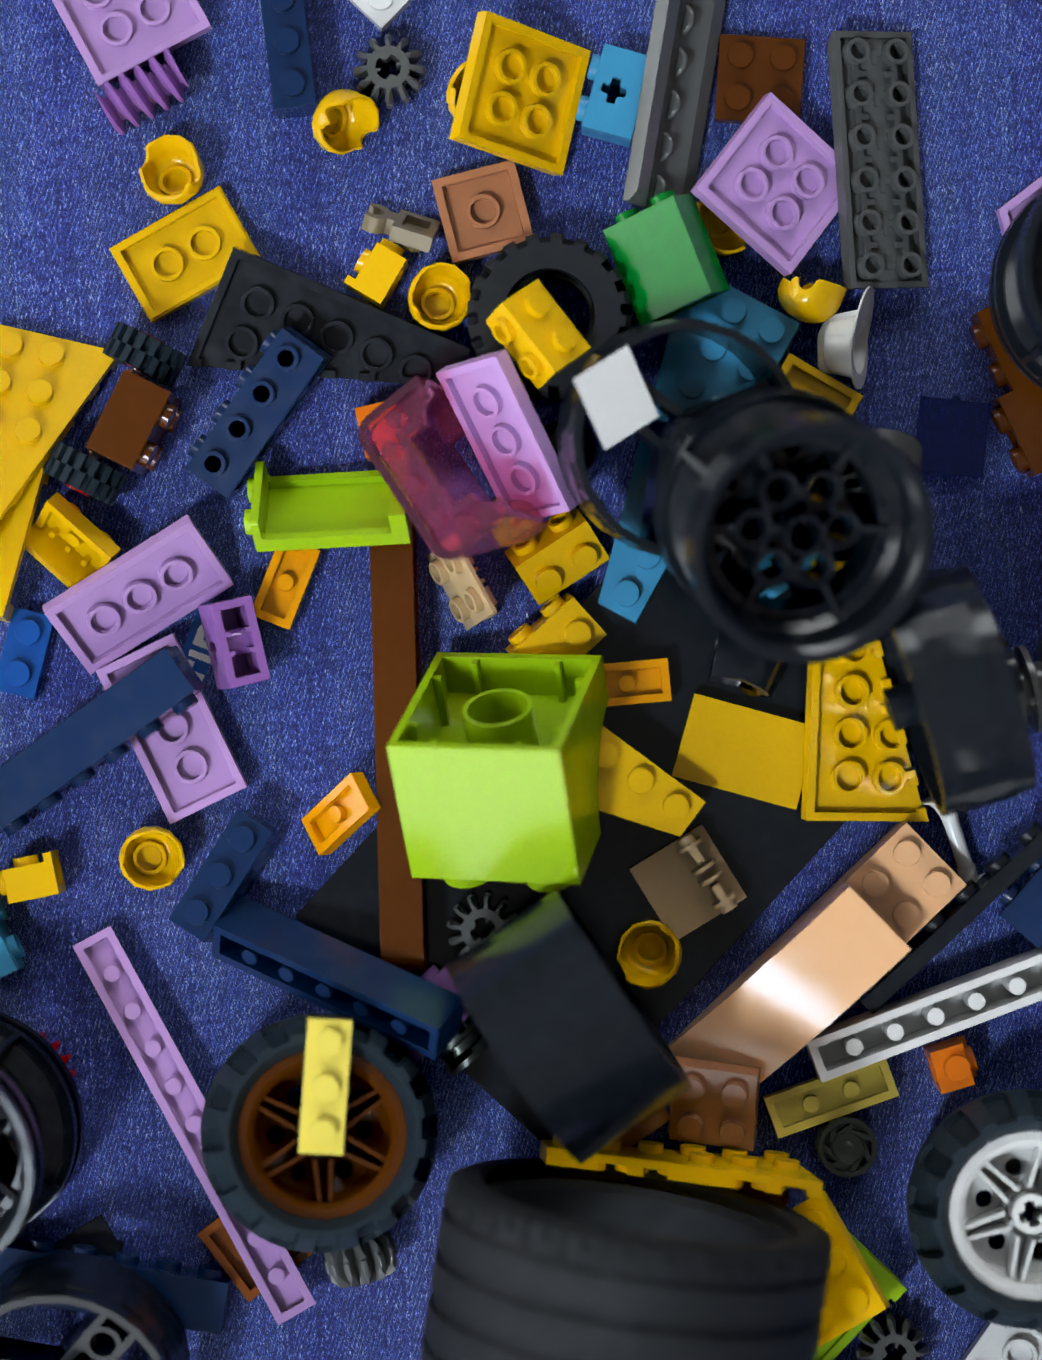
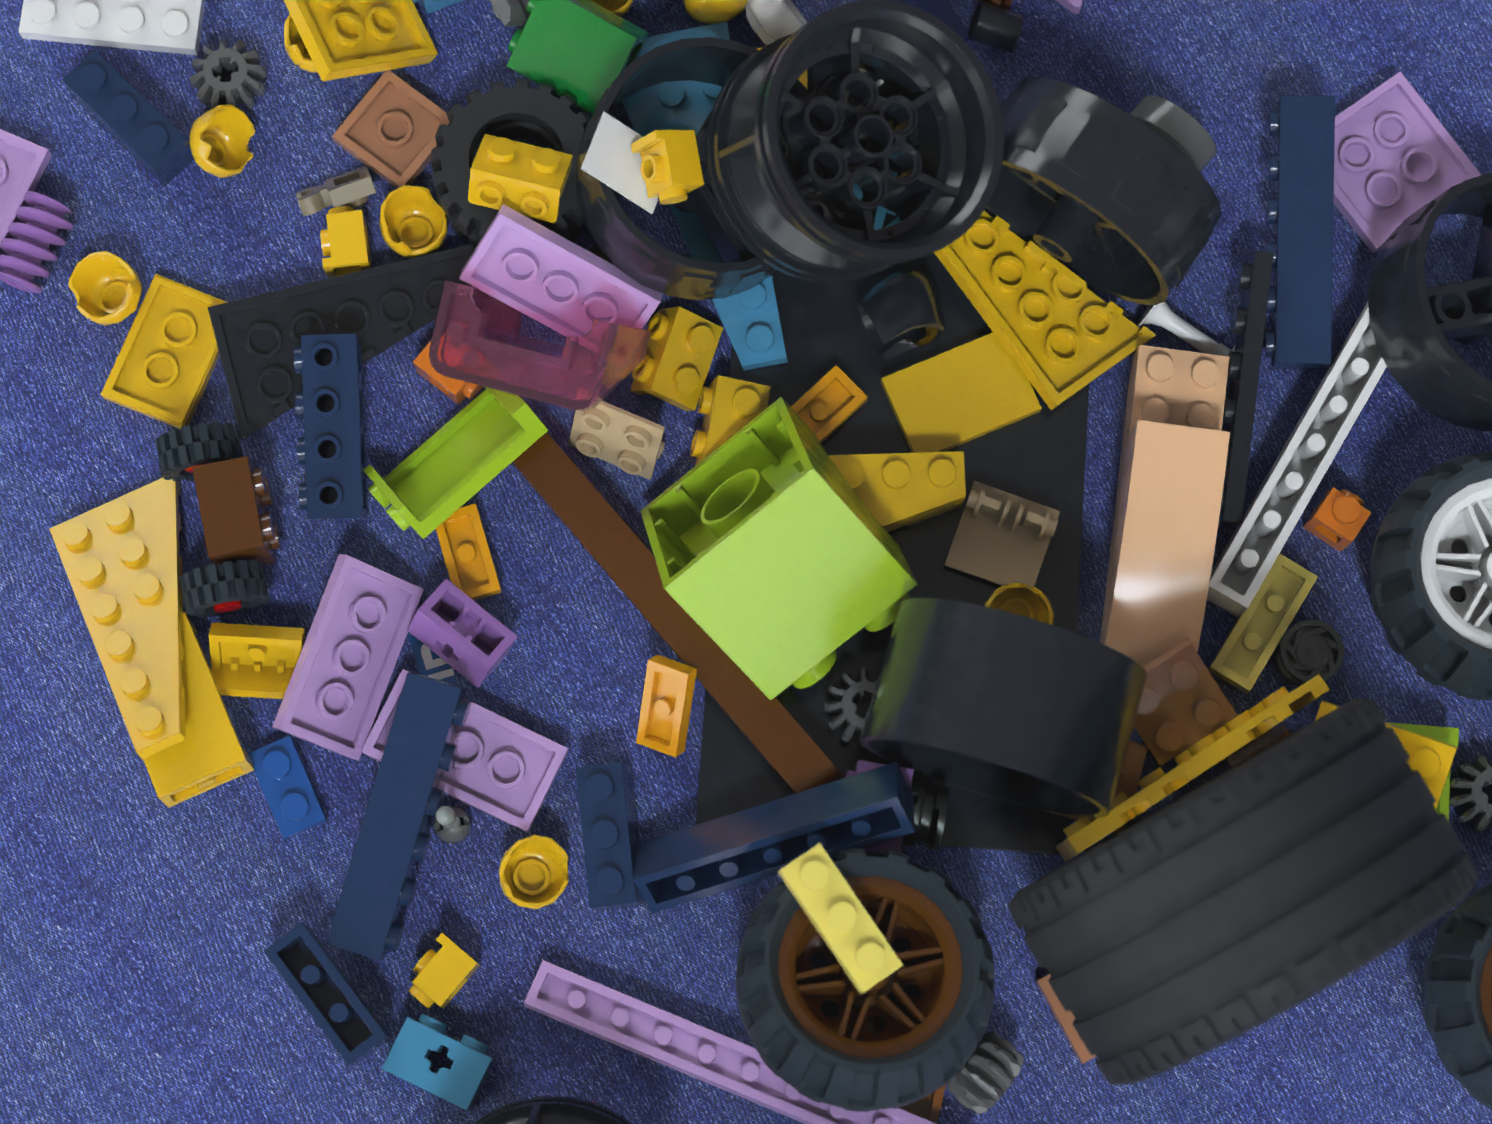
camera: 45 degrees left, 10 degrees down
(118, 777) = (452, 830): none -> dark grey hinge
(645, 425) = (669, 164): none -> yellow brick
(1004, 486) = (995, 26): none -> black beam

